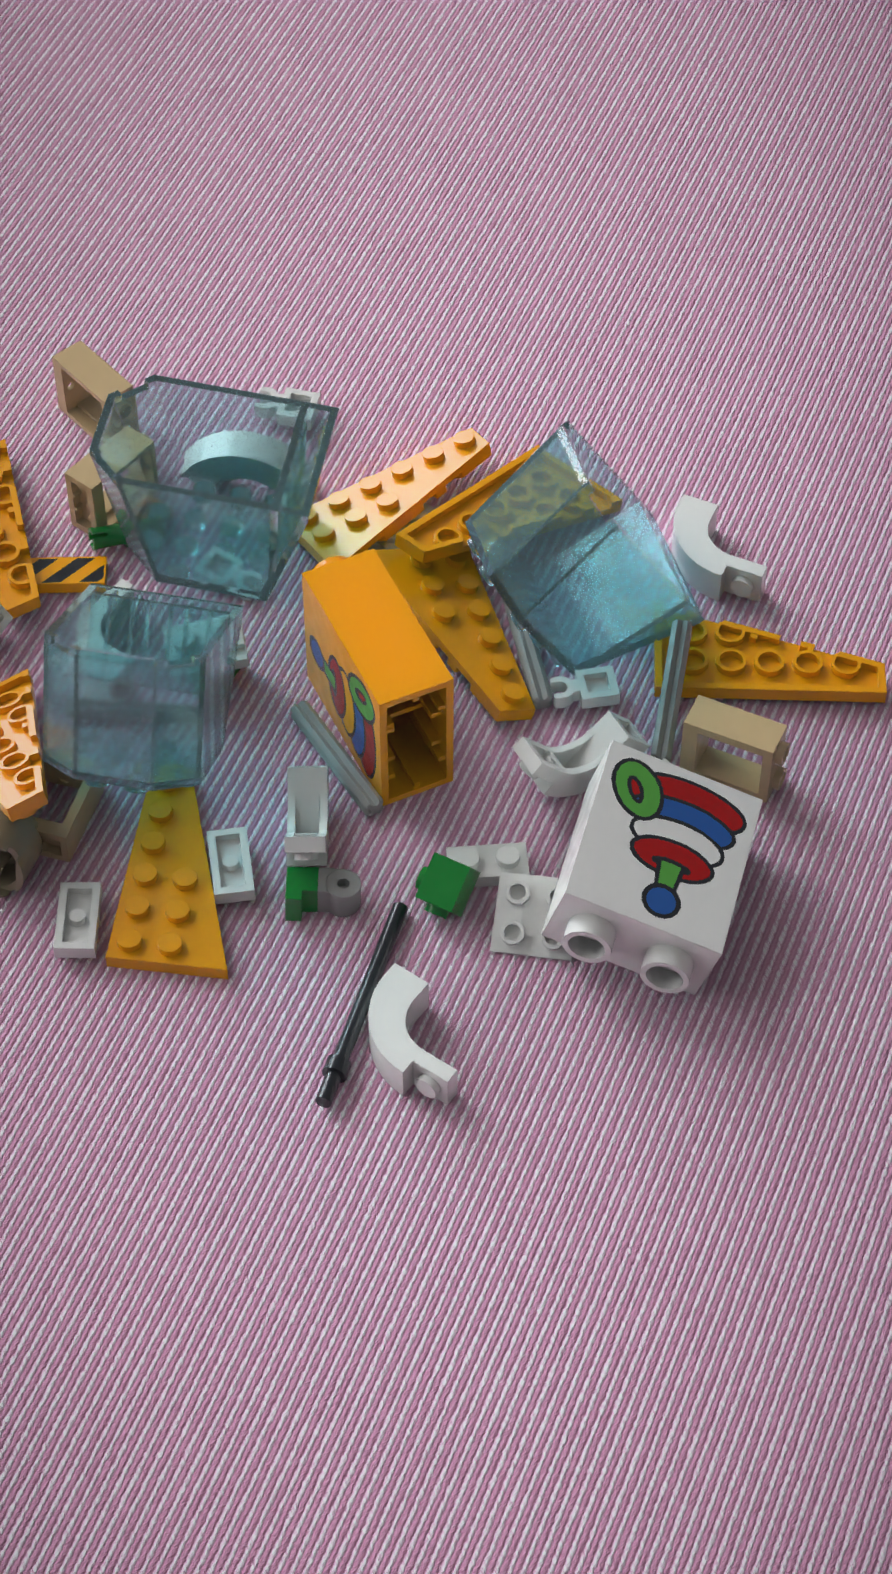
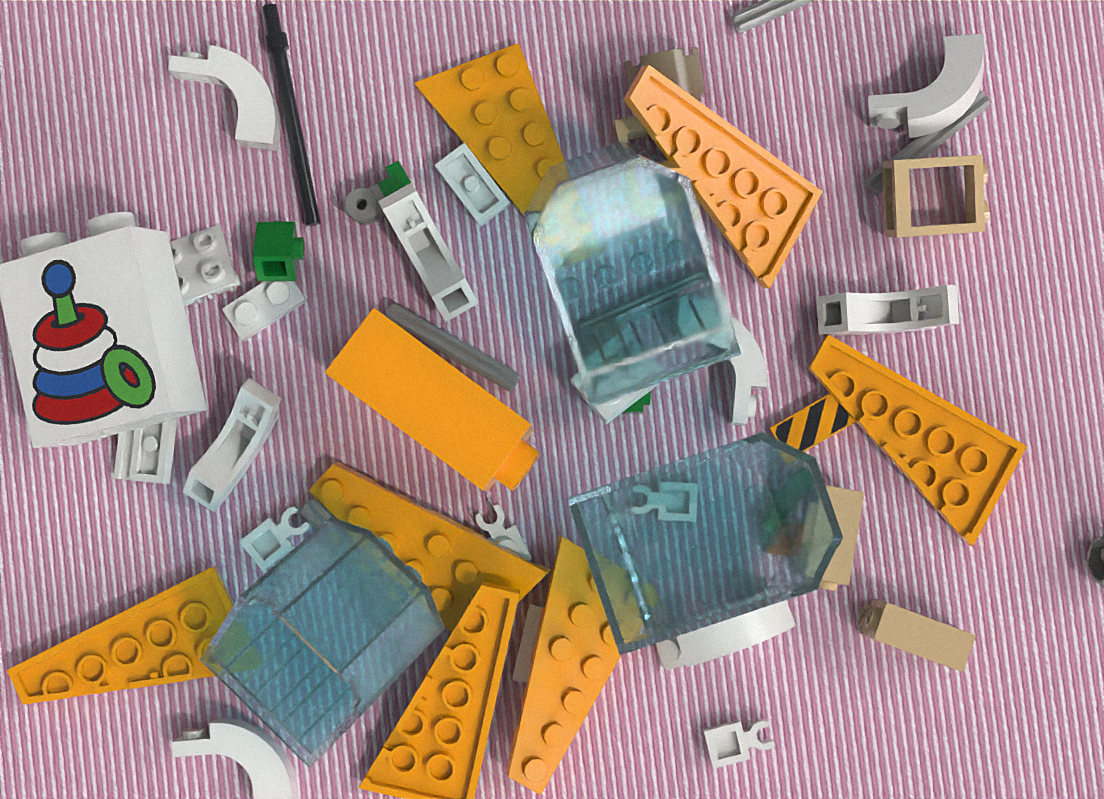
camera: 155 degrees right, 35 degrees up
(77, 920) = (563, 65): white plate -> none
(671, 689) = (192, 564): light grey axle -> none
(739, 729) = (101, 519): tan window -> none

